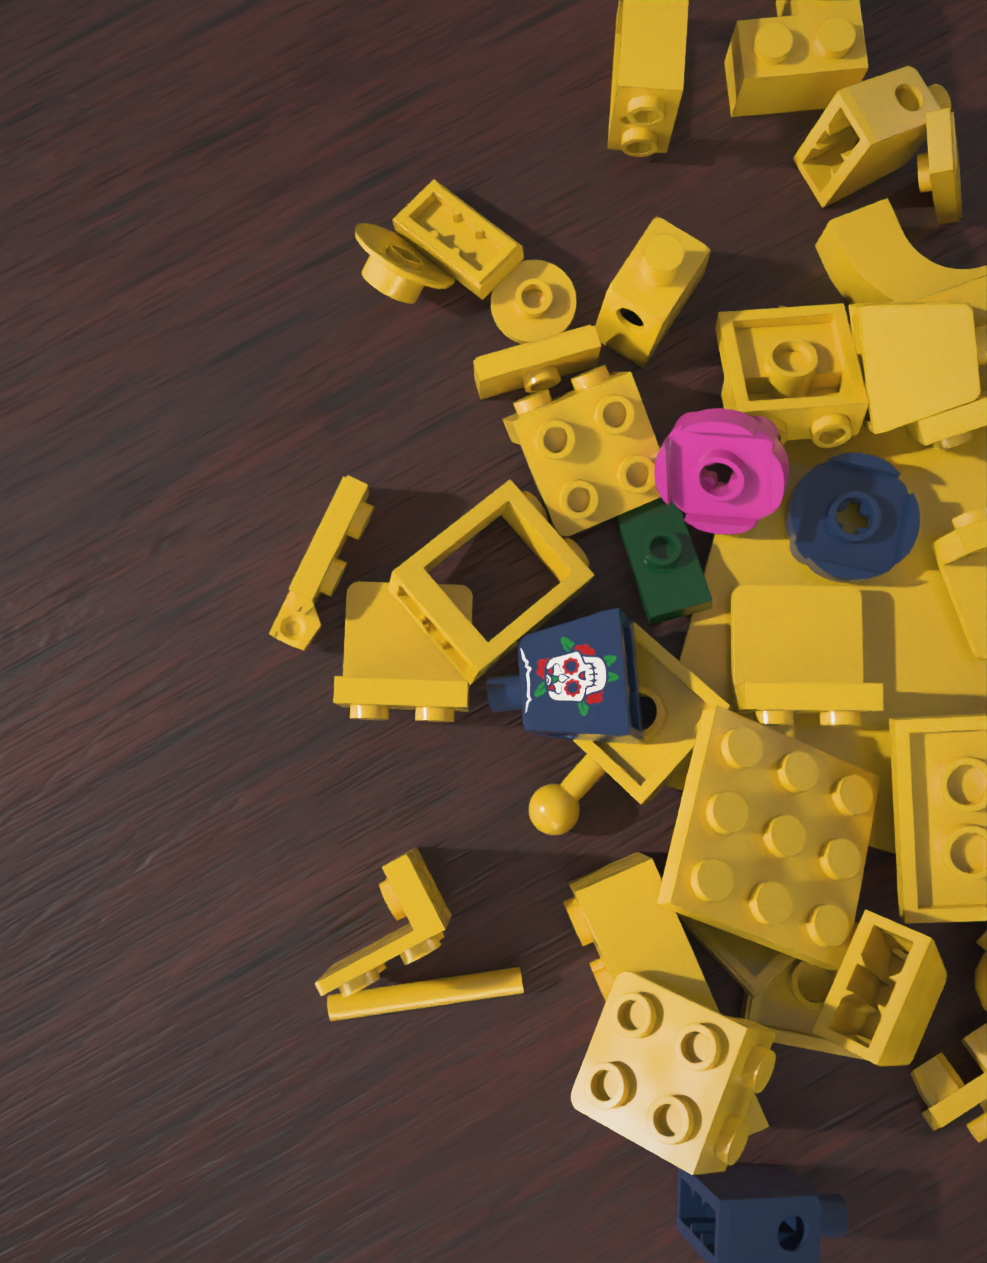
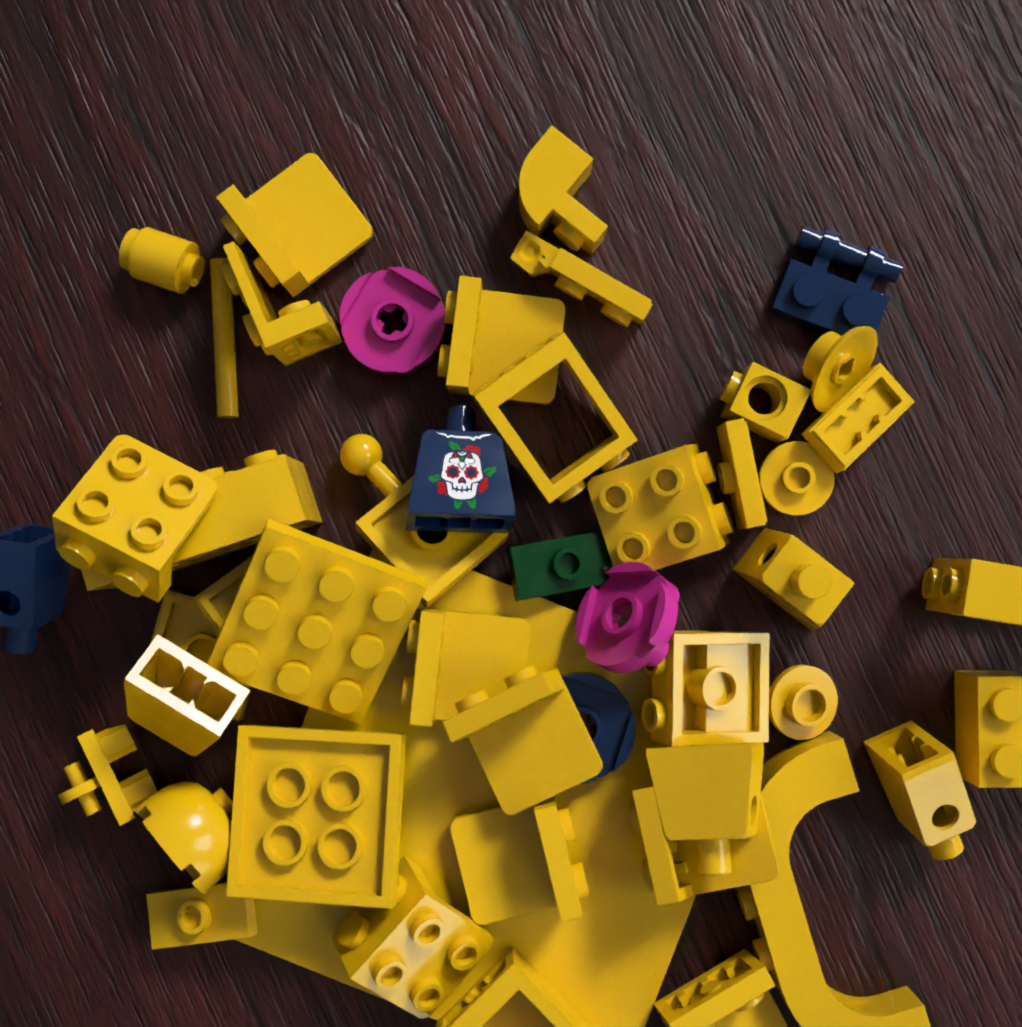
camera: 90 degrees right, 5 degrees up
(225, 615) = (546, 192): none -> yellow brick
(278, 914) = (297, 224): none -> yellow bracket
(325, 285) = (828, 301): none -> dark blue plate
(335, 1081) = (161, 259): none -> yellow brick
(354, 798) = (386, 291): none -> dark pink plate
(449, 318) = (786, 397): none -> yellow brick
(788, 273) = (802, 702): none -> yellow piece
(880, 571) = (527, 738): none -> yellow bracket
(940, 166) = (883, 843): yellow plate -> none

